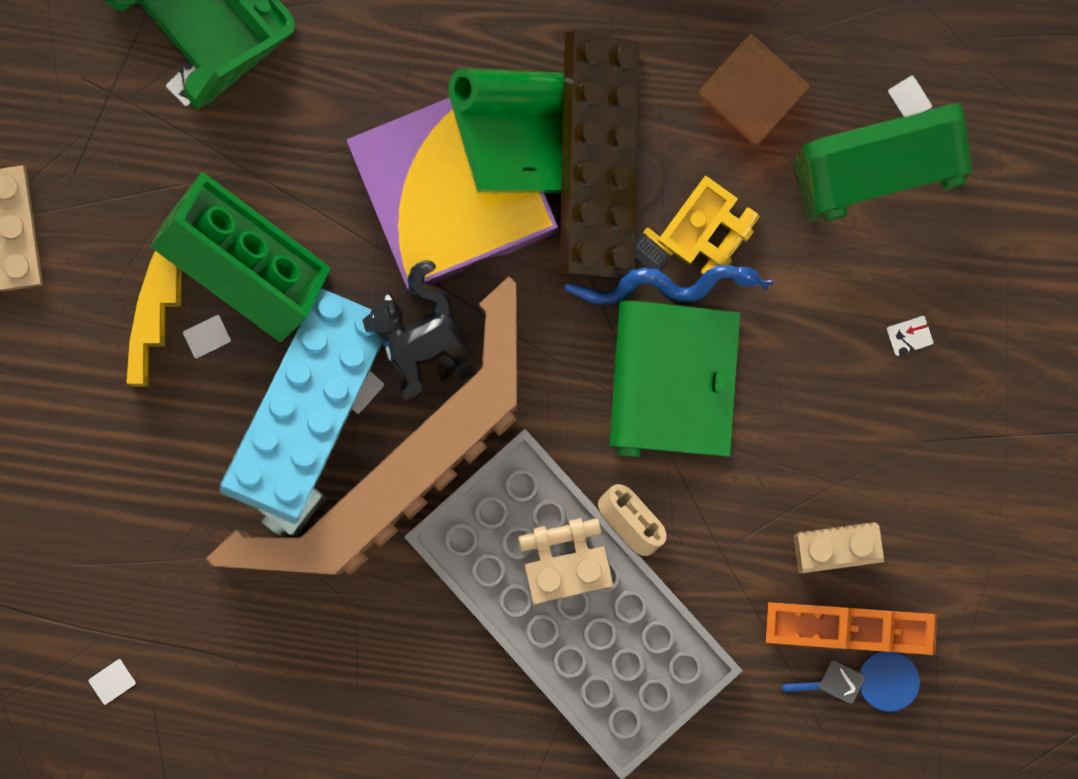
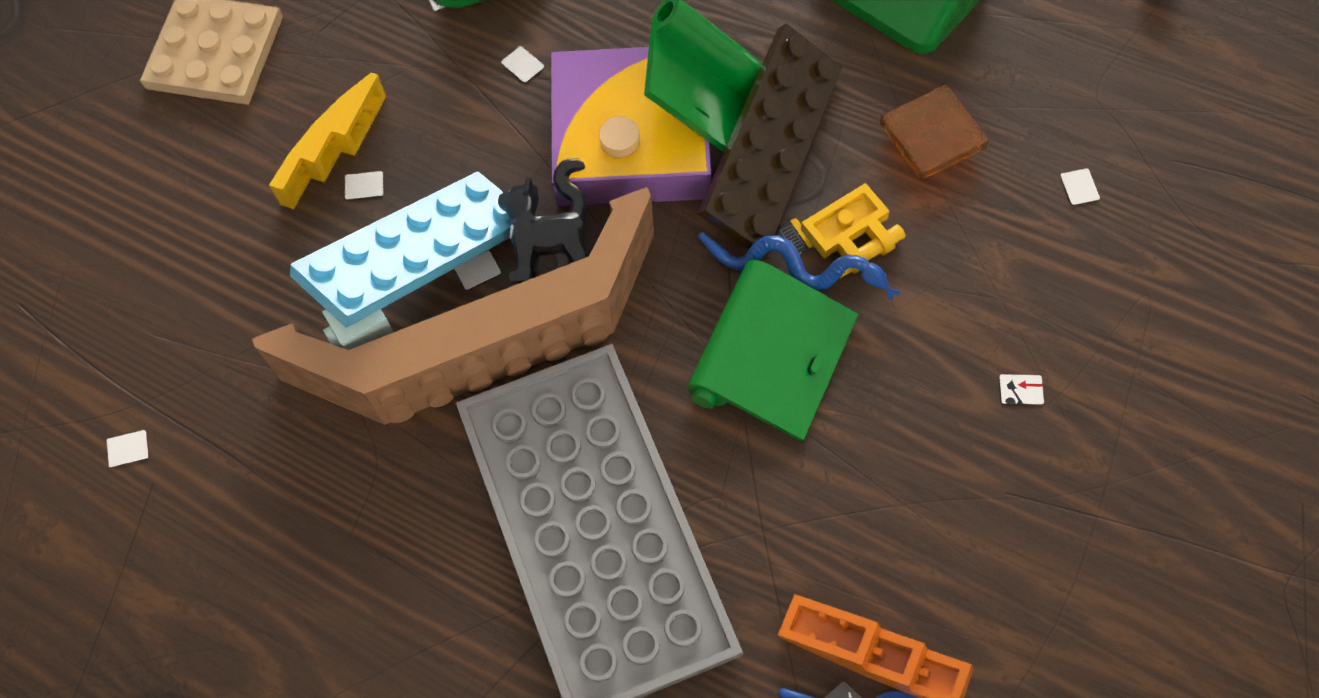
camera: 25 degrees right, 20 degrees down
(241, 257) = (415, 114): green slope -> none
(308, 141) = (522, 64): none -> white sticker
(455, 219) = (619, 136): none -> tan tile
(568, 573) = (600, 488): tan plate -> none
(632, 520) = (683, 463): tan beam -> none
(838, 547) = (887, 560): tan brick -> none
(883, 161) = (1047, 191): green windscreen -> none

